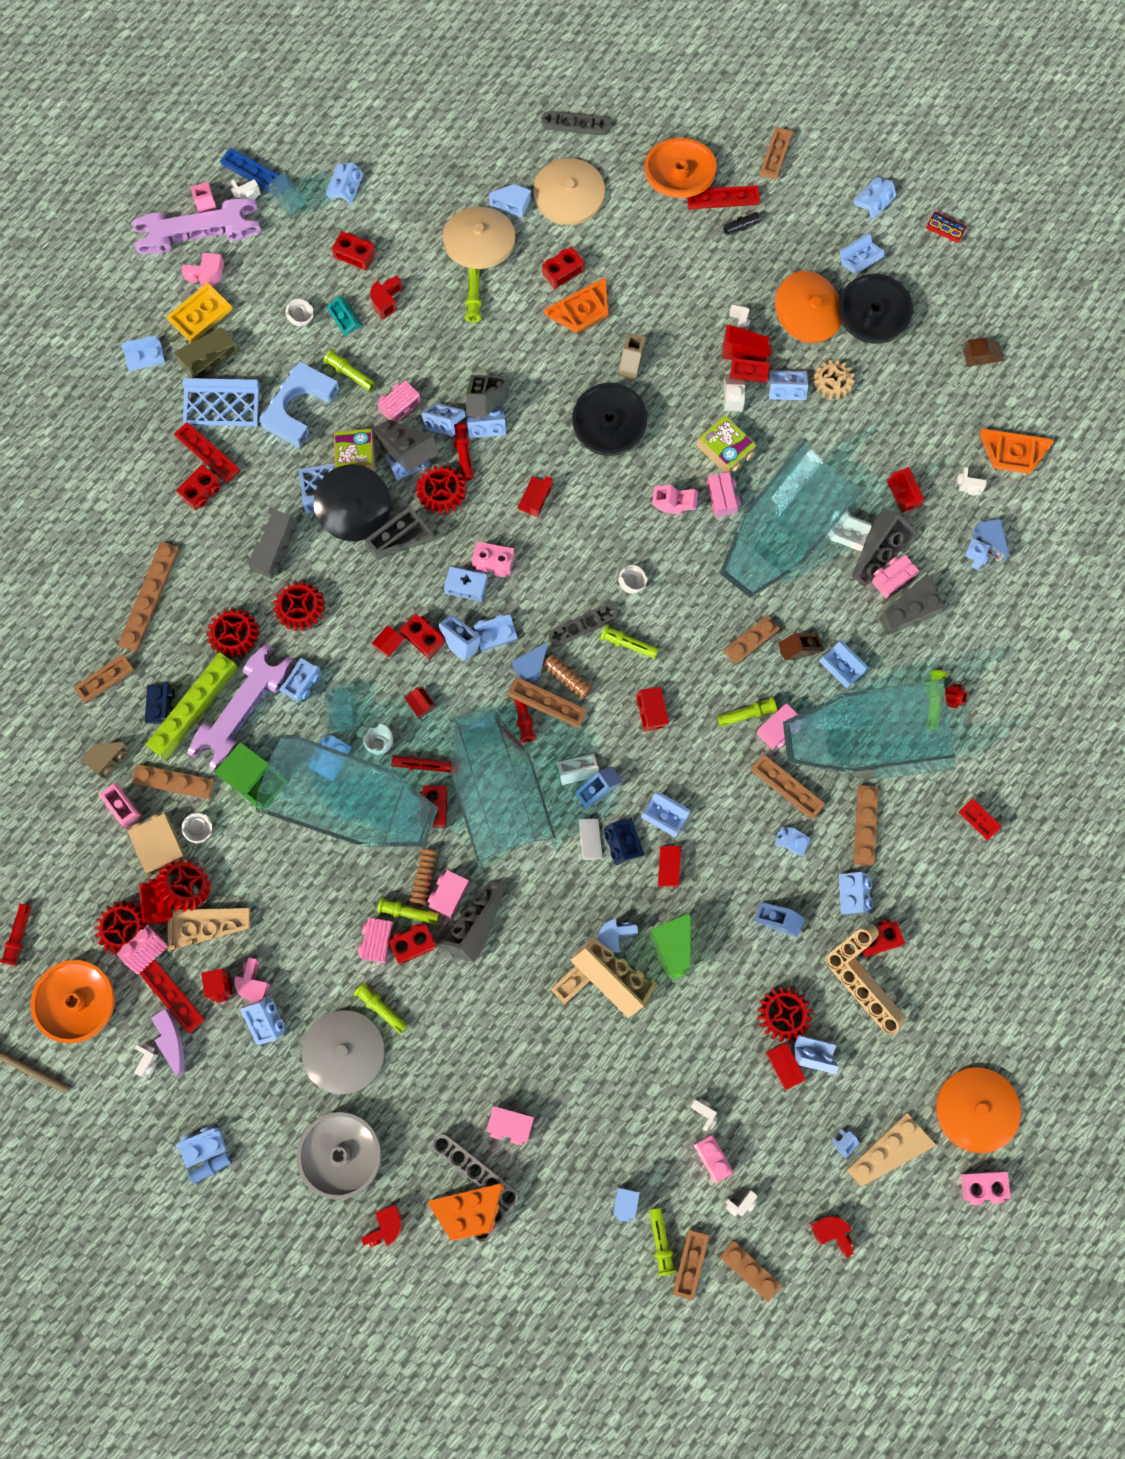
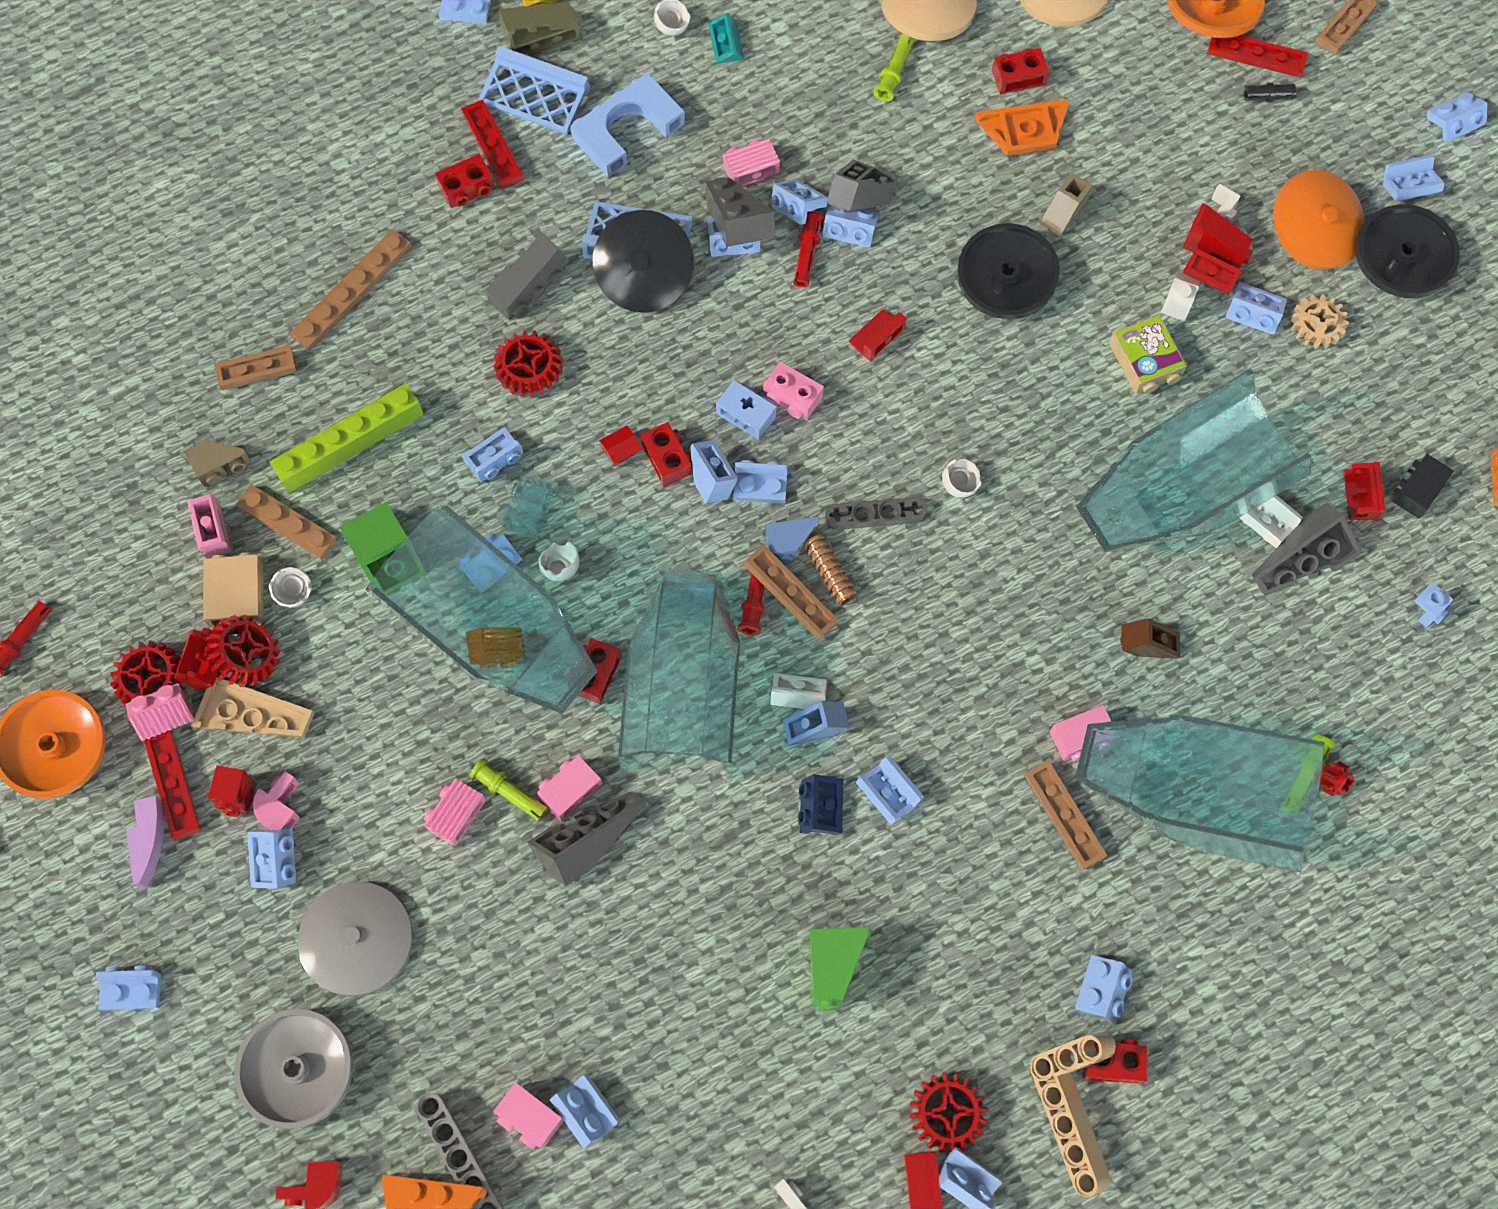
camera: 20 degrees right, 5 degrees down
(147, 1063) = (105, 858): white bracket -> none
(158, 703) = (308, 418): dark blue bracket -> none
(210, 1167) = (127, 1020): medium blue pin -> none
(239, 628) = (454, 364): red gear -> none
(259, 680) = (443, 436): lavender piece -> none
(342, 366) = (698, 97): lime pin -> none
(354, 448) = (674, 197): brick -> none
(360, 816) = (495, 646): none -> clear orange brick
(374, 1001) = (419, 888): lime pin -> none
(382, 296) = (782, 29): red brick -> none
(399, 534) = (685, 320): dark grey wedge -> none
(414, 949) = (497, 841): red brick -> none
(420, 702) = (630, 534): red piece -> none
(421, 763) = (600, 611): red pin -> none
(423, 876) = (546, 754): medium nougat piece -> none
(448, 477) = (760, 296): red gear -> none
(546, 1106) = (585, 1111): none -> light blue bracket
(570, 985) = (689, 960): tan hinge -> none
(590, 839) = (779, 786): white slope -> none
(610, 932) = (754, 919): light blue brick -> none
(613, 977) = (739, 974): tan wedge -> none
(620, 636) = (913, 549): lime pin -> none
(652, 709) = (924, 650): red hinge -> none
(669, 866) = (869, 860): red slope -> none
(673, 501) = (1050, 399): bright pink brick -> none
(722, 494) = (1119, 413): bright pink brick -> none
(751, 640) = (1088, 610): medium nougat plate -> none
(756, 710) = (1059, 700): lime pin -> none
(780, 919) = (989, 984): medium blue slope -> none
(792, 840) = (1045, 887): light blue bracket -> none
(843, 664) = (1199, 684): light blue bracket -> none
(865, 825) = (1151, 905): medium nougat plate -> none
(894, 576) = (1310, 595): bright pink brick -> none
(912, 607) = (1319, 643): dark grey wedge -> none
(942, 472) = (1422, 486): none -> black brick
(970, 485) = (1454, 514): white bracket -> none
(979, 819) = (1310, 954): red hinge -> none
(992, 534) = (1463, 587): medium blue slope -> none

